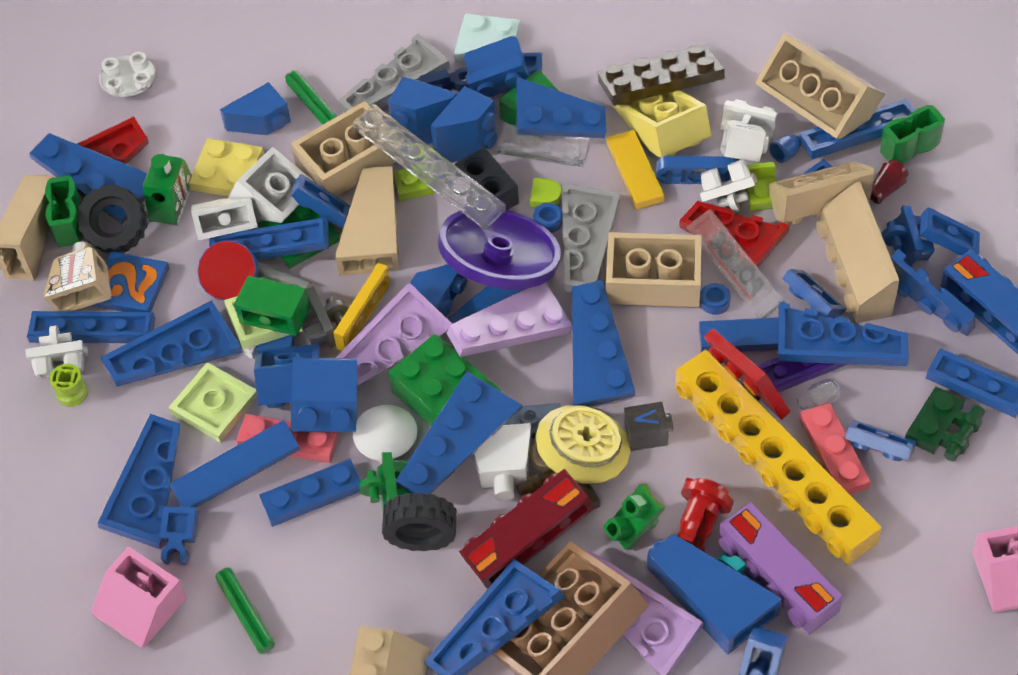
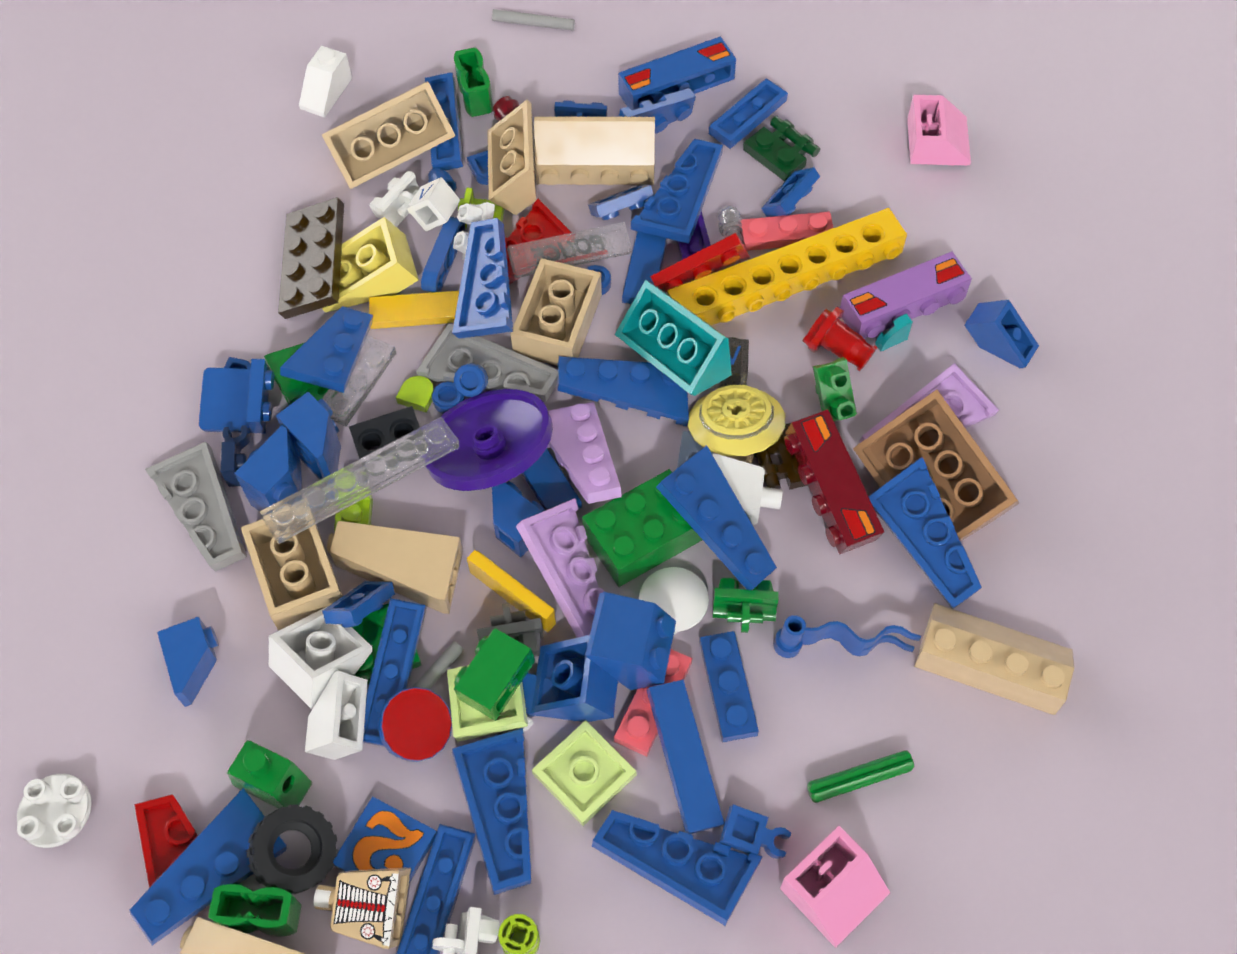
camera: 80 degrees left, 5 degrees up
(222, 165) = (252, 709): light yellow plate -> none
(309, 97) = (192, 598): green axle -> none
(364, 534) = (796, 634): none -> blue flag
(419, 522) = (808, 574): black tyre -> none
(483, 30) = (176, 406): light aqua wing -> none
(560, 222) = (470, 379): none -> blue tile
(642, 366) = (675, 340): none -> teal slope
(657, 200) = (484, 286): none -> wing
(712, 591) = (920, 352): blue slope -> none
(870, 25) = (324, 81): none -> white slope
(948, 232) = (591, 87): blue plate -> none

